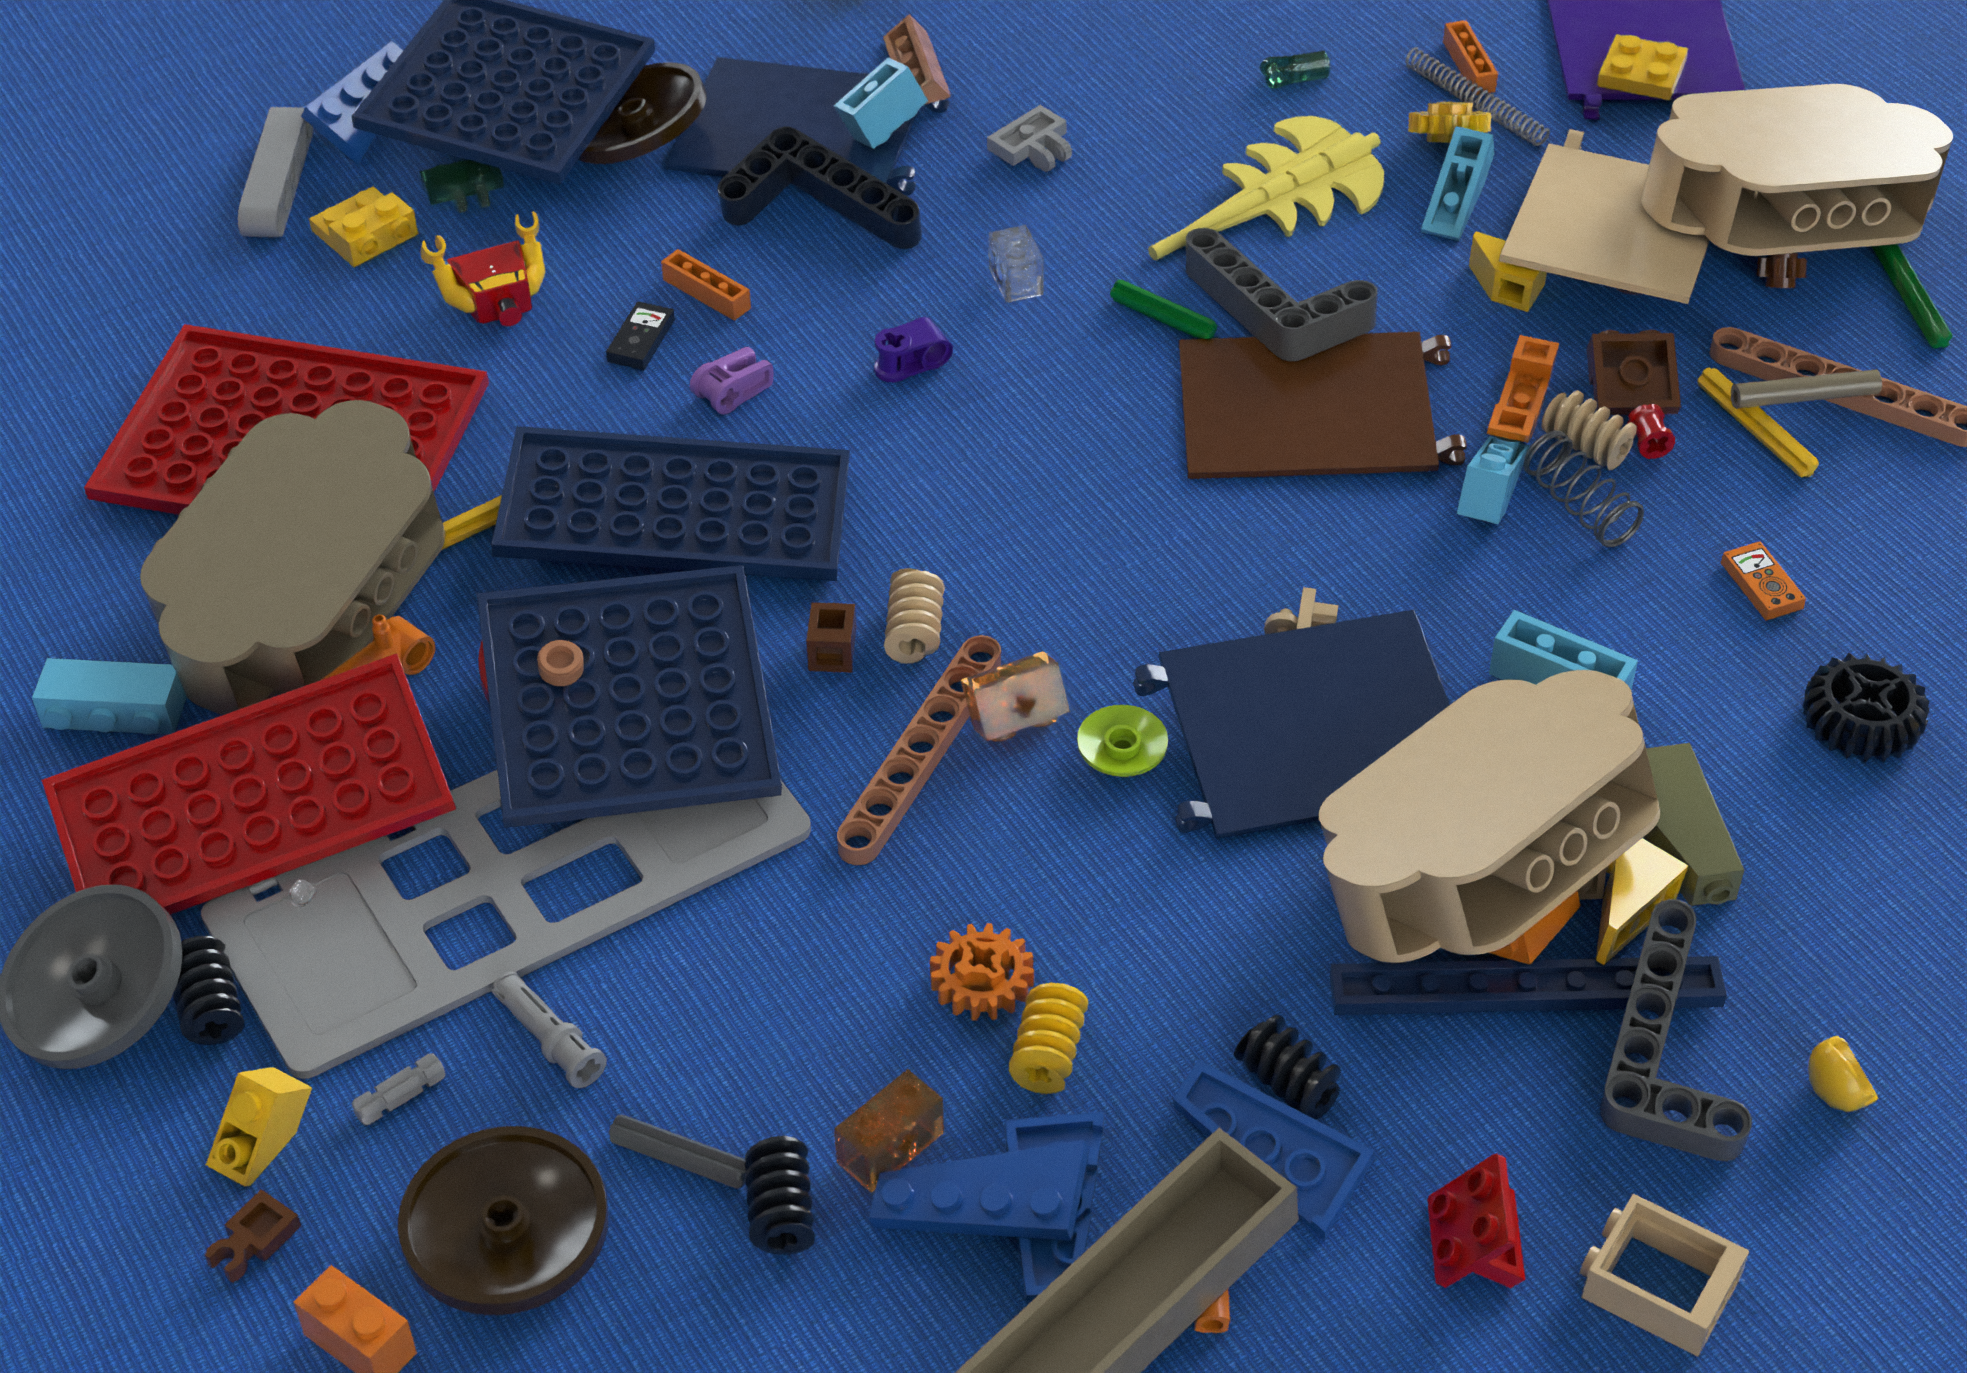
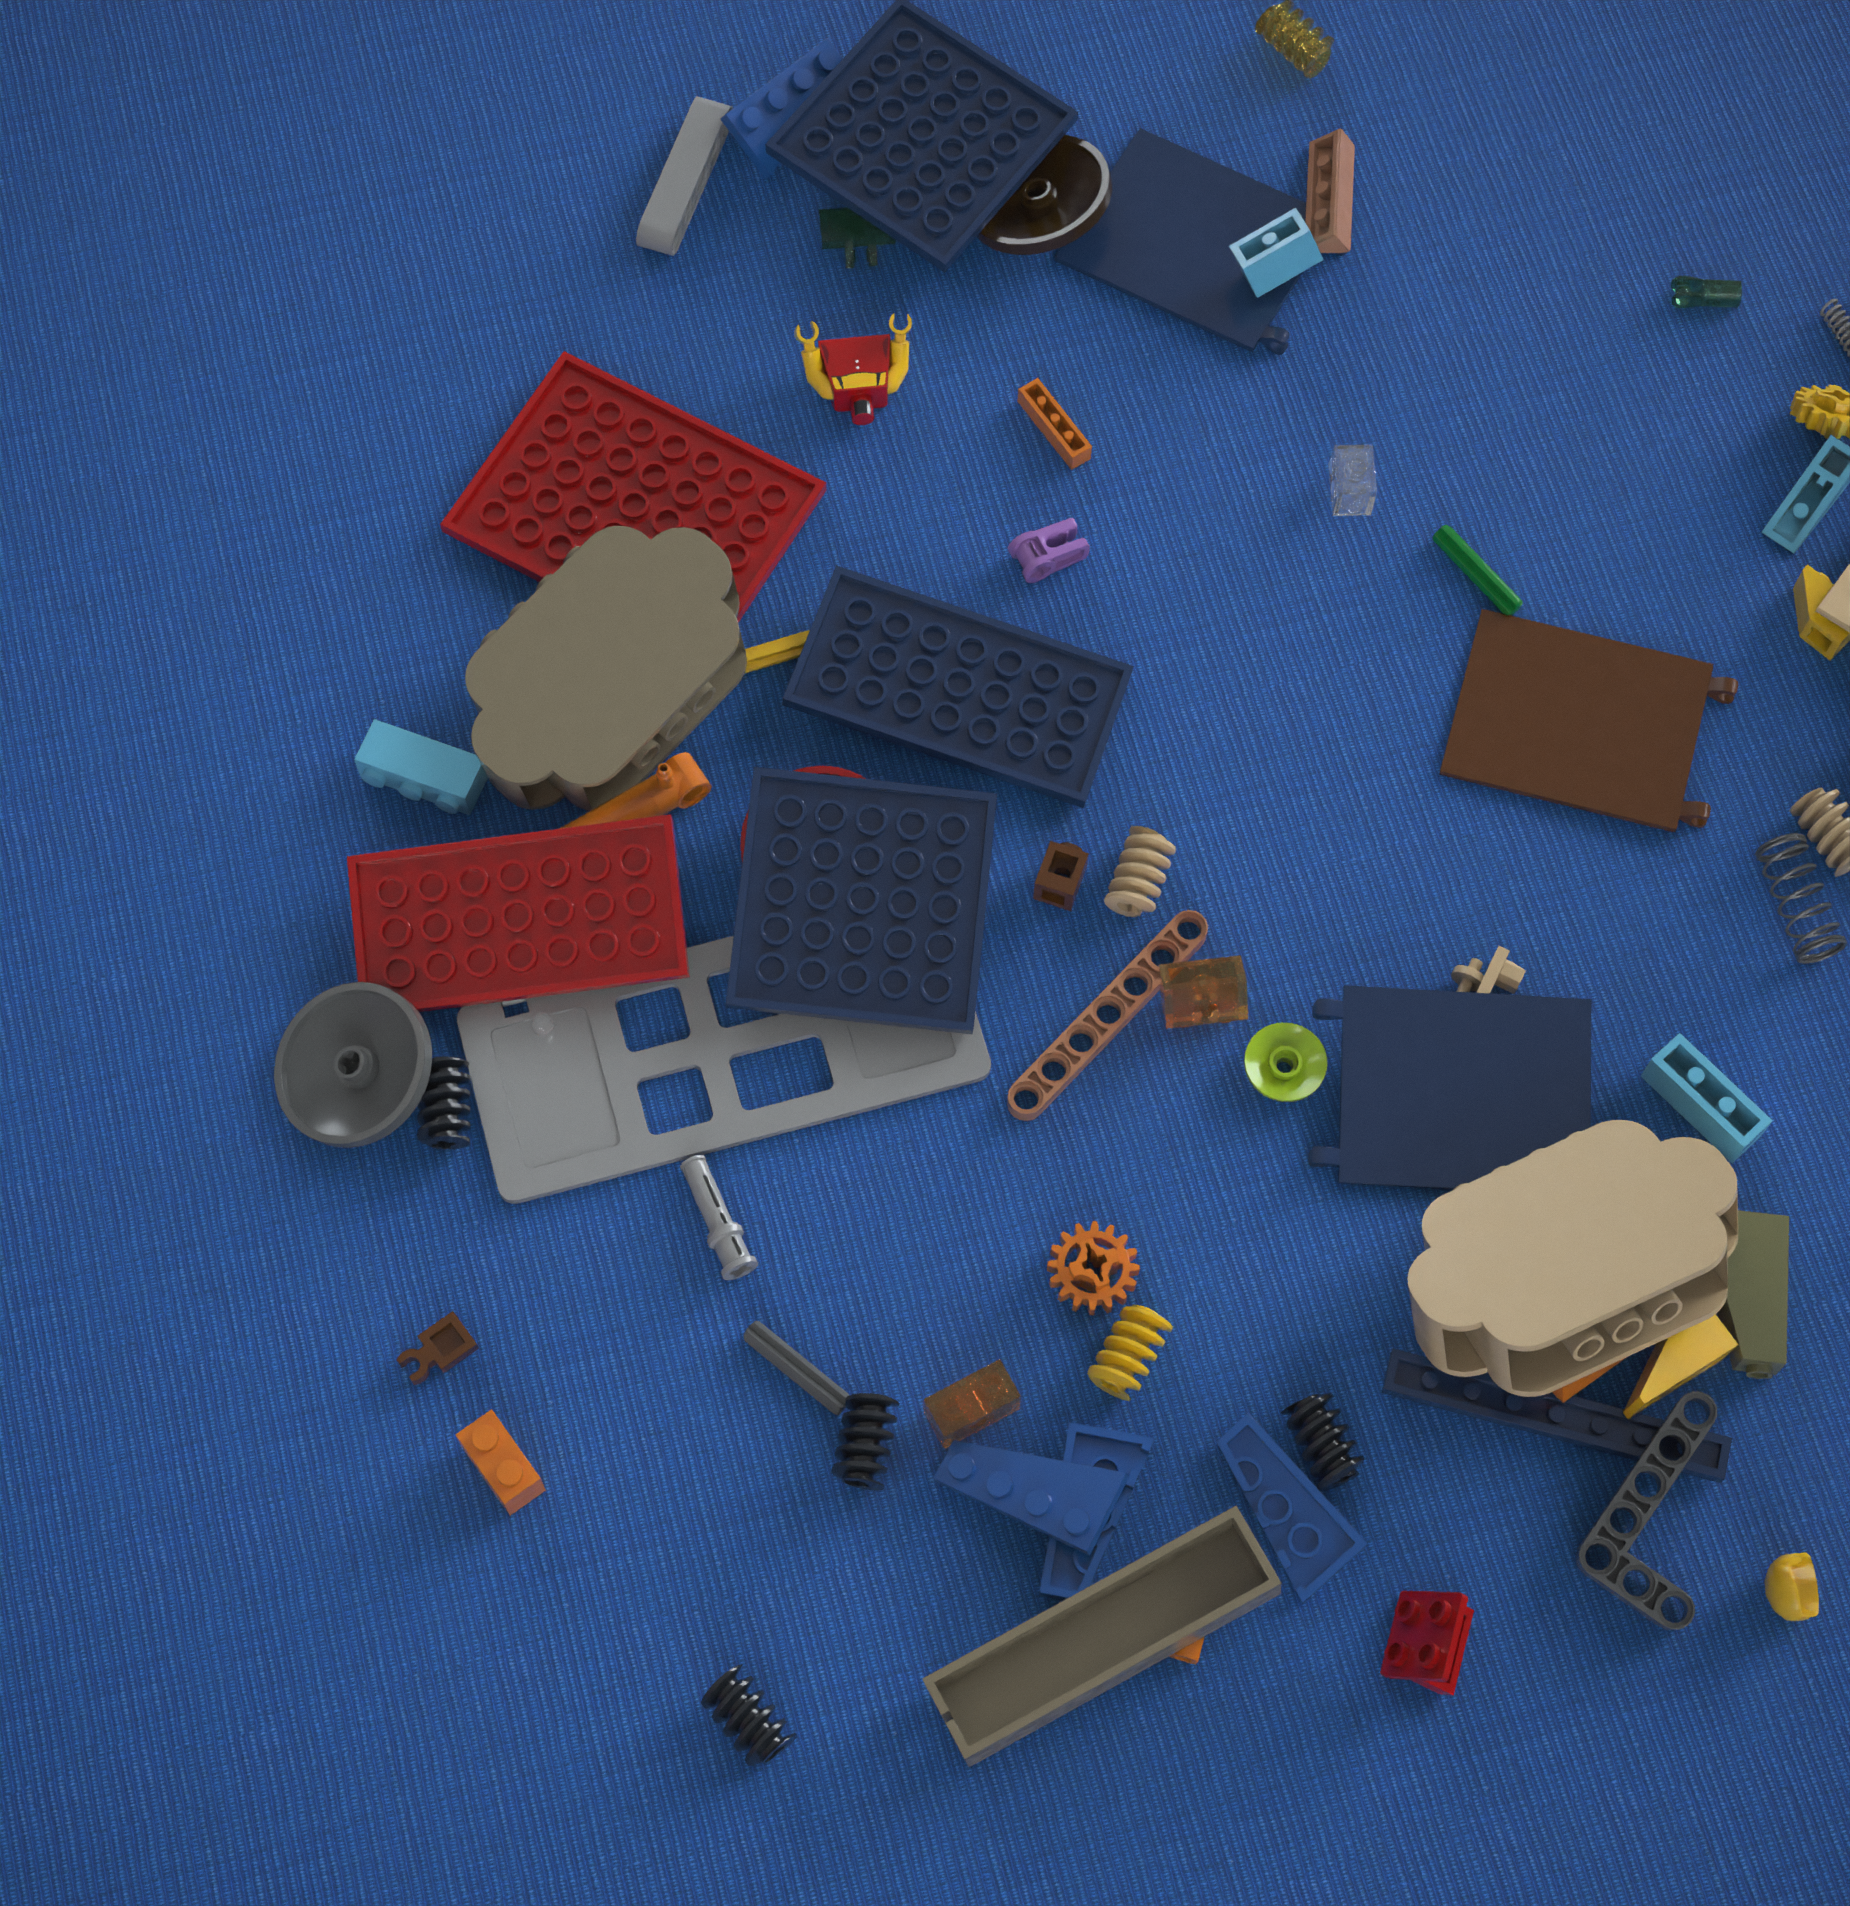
camera: 15 degrees right, 20 degrees up
(257, 1123) = (462, 1244): yellow slope -> none
(365, 225) = (754, 263): yellow plate -> none
(398, 1089) = (583, 1240): light grey axle -> none
(503, 1220) = (638, 1399): dark brown dish -> none
(560, 663) = (810, 860): nougat tile -> none
(640, 335) = (978, 469): black tile -> none
(797, 159) = (1196, 332): black beam -> none
(913, 347) = (1225, 556): dark purple piece -> none
(1028, 138) = (1411, 315): light grey hinge -> none
(1267, 311) = (1576, 592): dark grey beam -> none
(1325, 160) = (1699, 425): light yellow animal -> none
(1492, 479) = (1722, 858): medium azure slope -> none
(1524, 389) = (1786, 765): orange slope -> none
(1680, 1240) = (1625, 1732): tan window -> none

